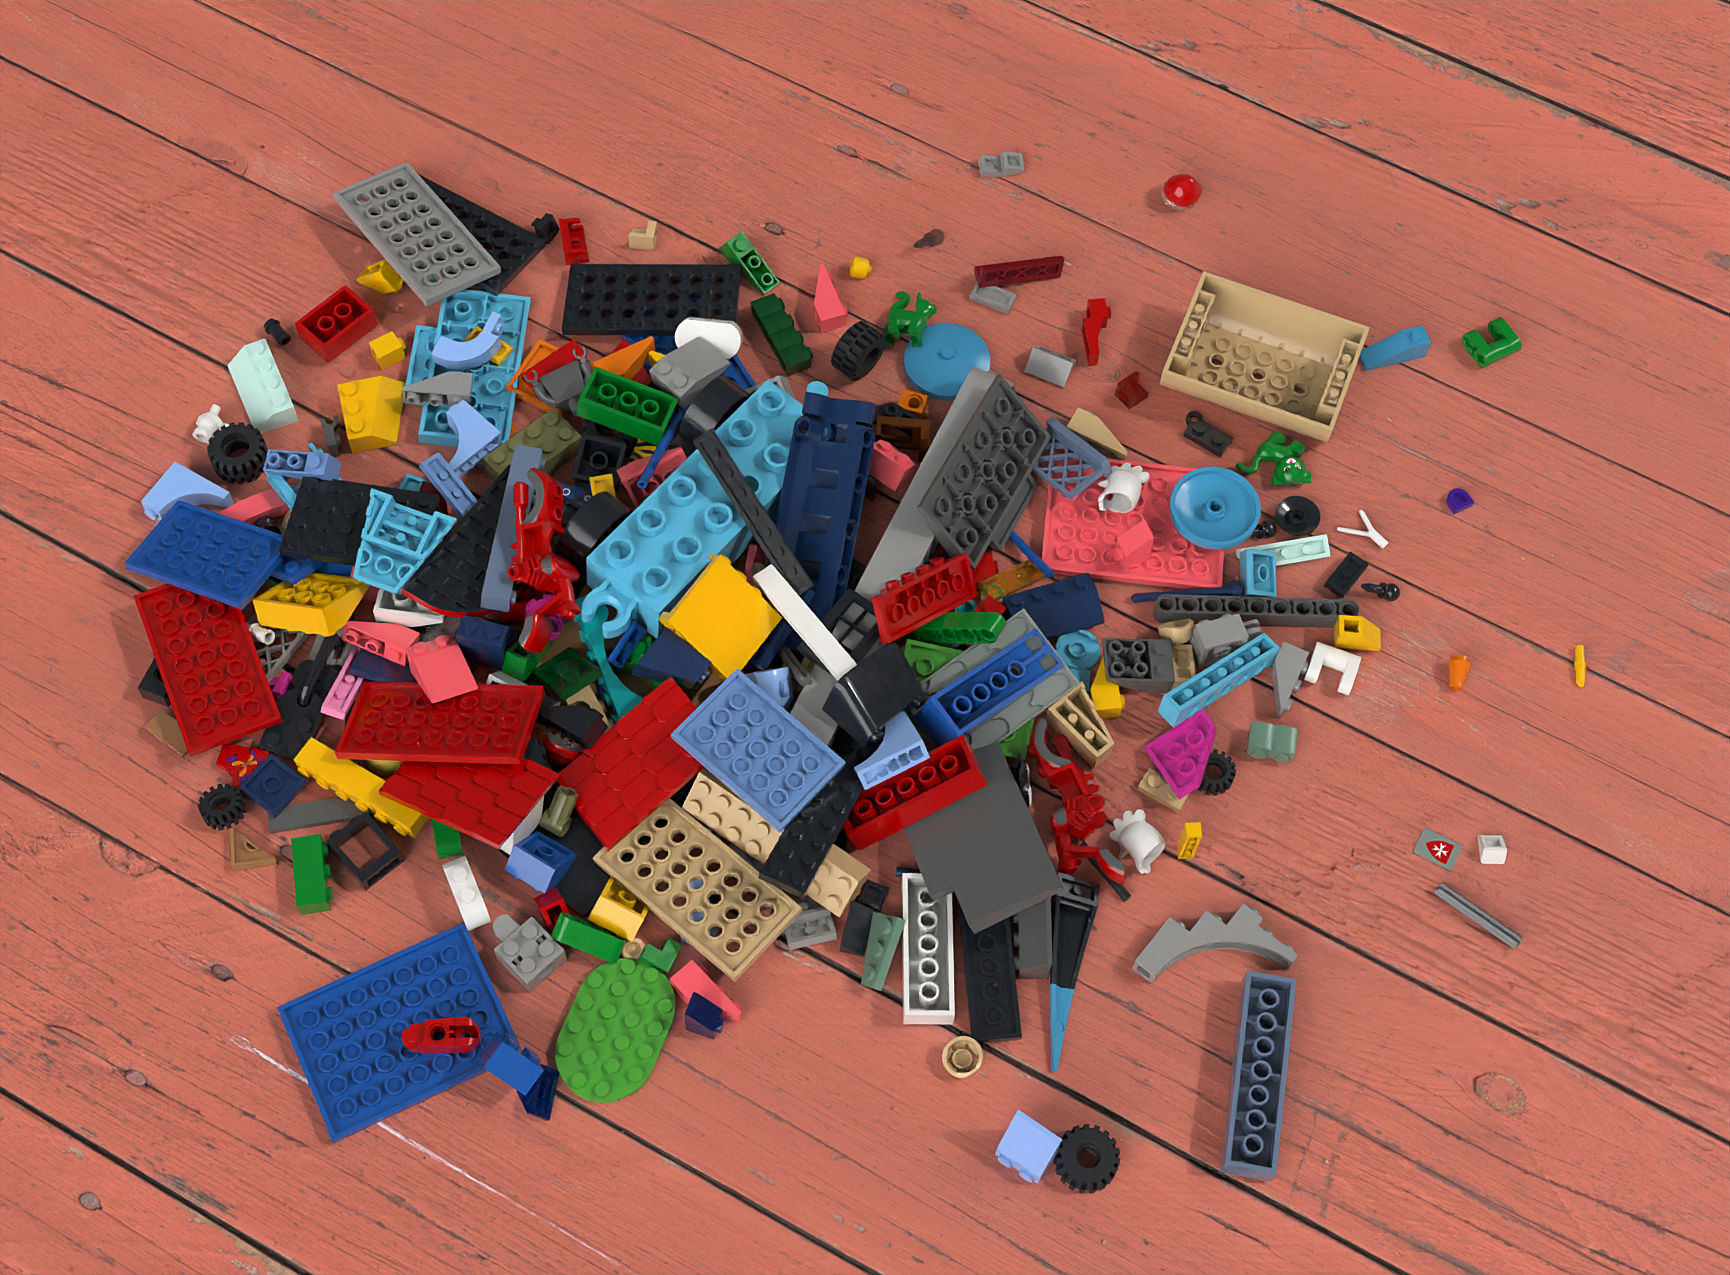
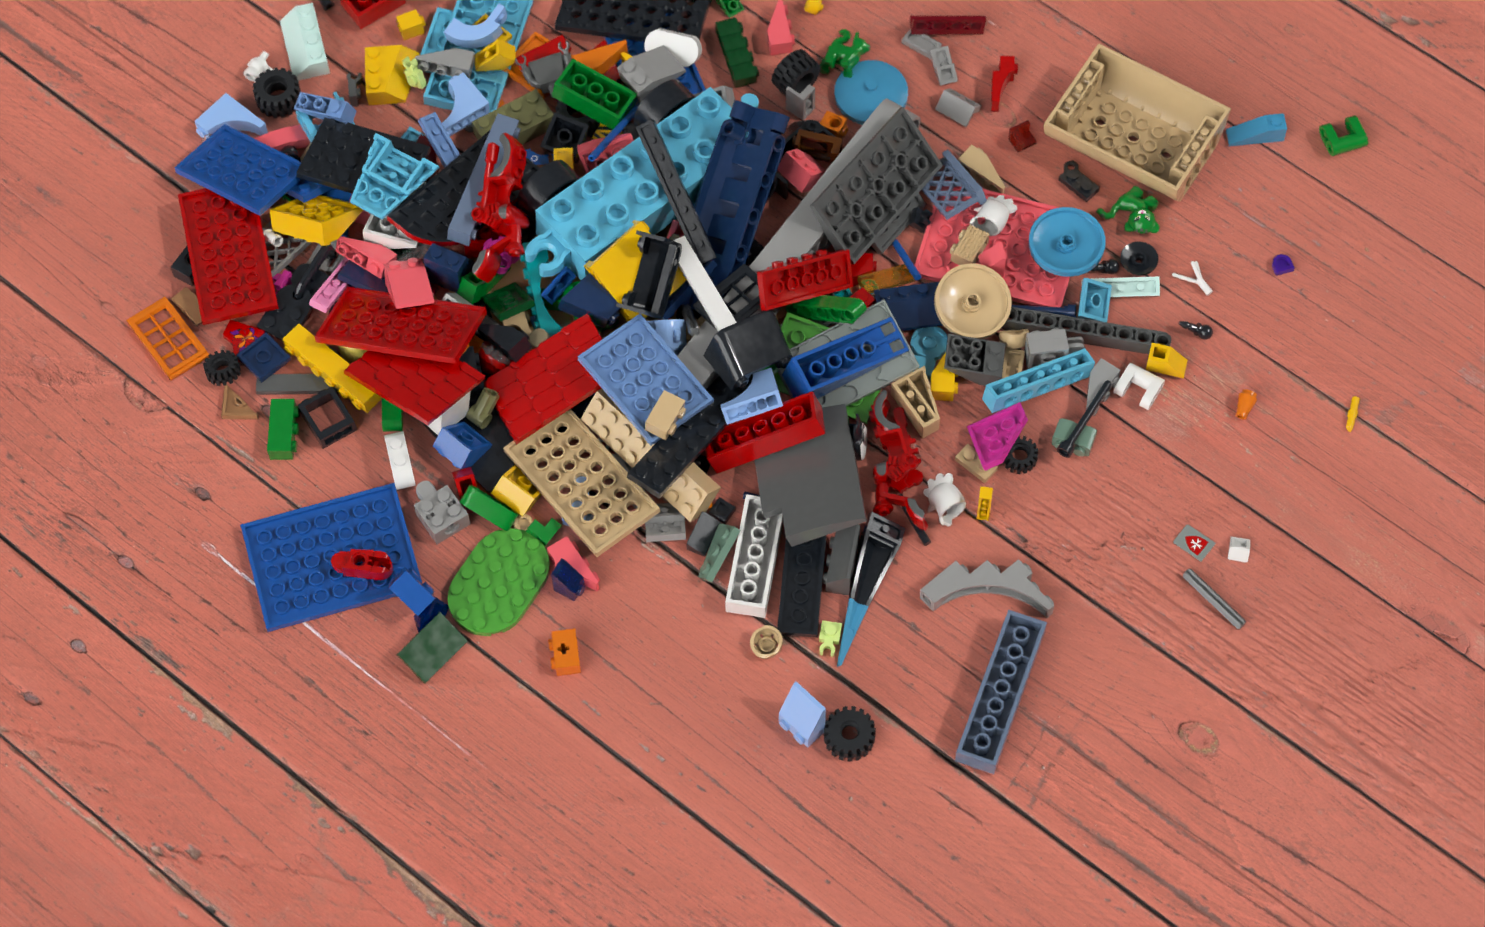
camera: 15 degrees right, 0 degrees up
(176, 807) = (187, 363): none -> orange piece
(402, 410) = (414, 75): none -> yellowish green plate
(498, 375) = (495, 56): none -> yellow slope
(548, 1131) = (432, 647): none -> dark green tile
(613, 712) = (538, 336): none -> dark tan tile
(716, 1094) = (564, 641): none -> orange brick
(744, 620) = (654, 276): none -> black windscreen
(792, 793) = (665, 415): none -> tan brick
(868, 385) = (800, 104): none -> light grey panel
(1023, 319) = (943, 65): none -> light grey slope
(1035, 1033) = (830, 635): none -> yellowish green plate
(1036, 503) = (920, 219): none -> black tile
(1102, 530) = (970, 245): none -> tan brick
(1122, 594) = (972, 301): none -> tan dish
(1269, 757) = (1067, 447): none -> black piece
(1346, 575) = (1169, 312): black plate -> none

